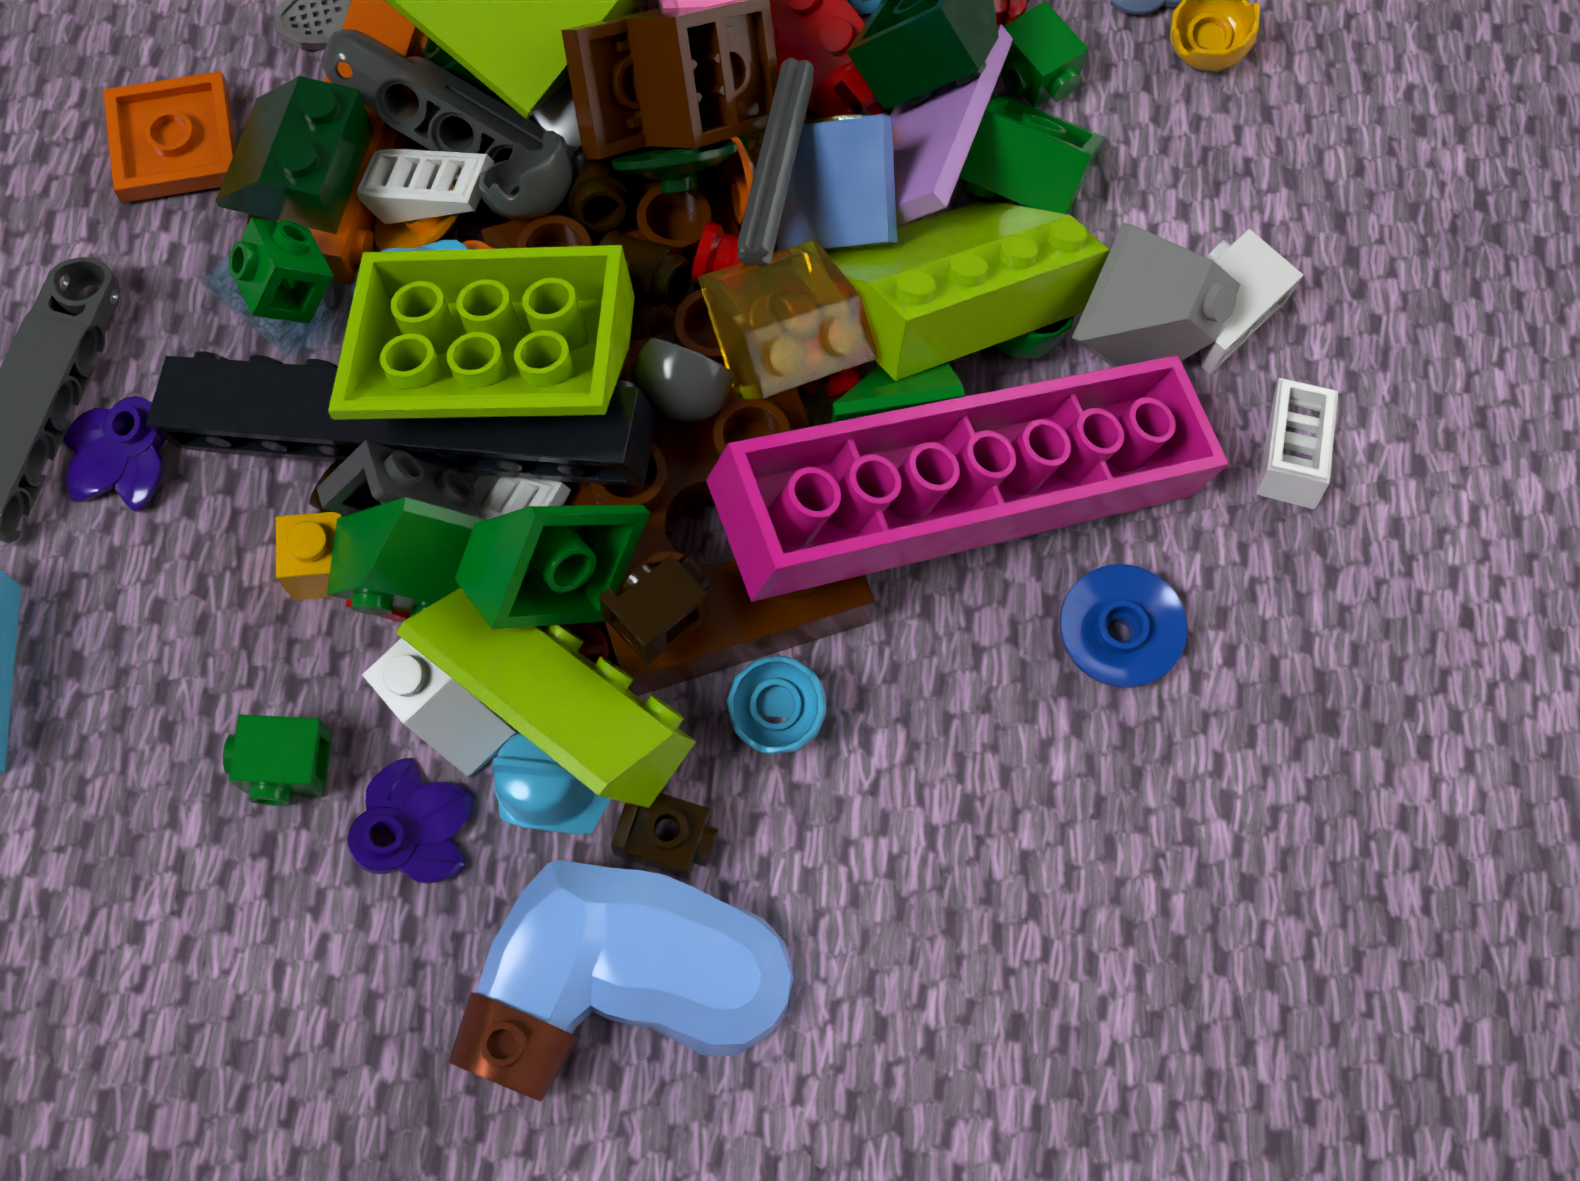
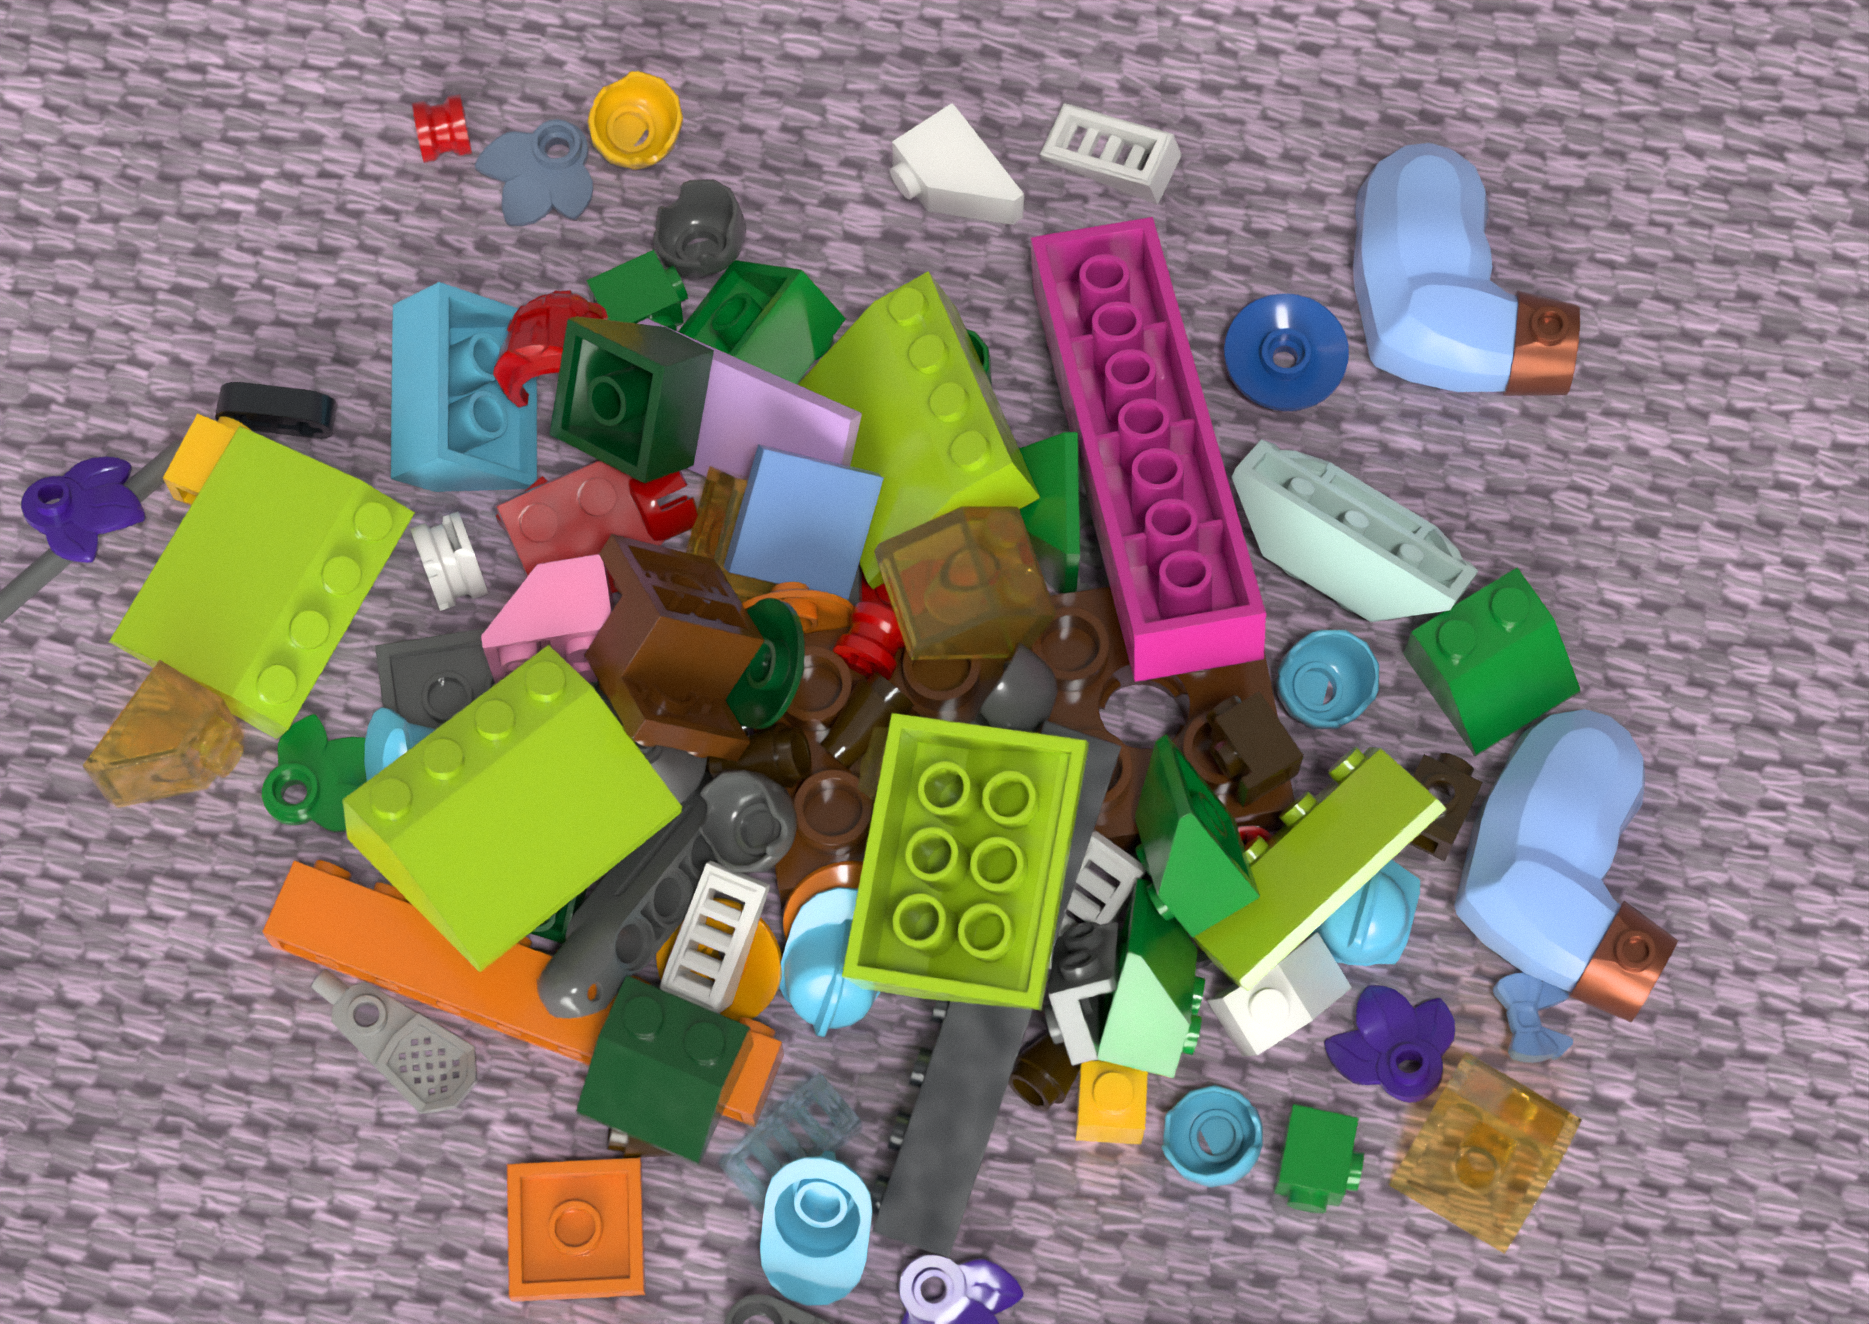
camera: 75 degrees left, 0 degrees up
(179, 315) = (815, 1230): none -> medium azure piece
(273, 638) = (1229, 1127): none -> medium azure hair
(280, 270) = (802, 1094): green brick -> none
(303, 927) = (1485, 1152): none -> clear yellow slope
(427, 960) = (1523, 999): none -> medium blue piece
(775, 163) = (790, 563): dark grey axle -> none
(826, 873) = (1493, 661): none -> green slope
(937, 706) = (1347, 537): none -> light aqua wedge
(1135, 95) = (701, 211): none -> dark grey hair
(1154, 301) = (973, 243): light grey slope -> none
(1231, 759) = (1429, 290): none -> light blue piece

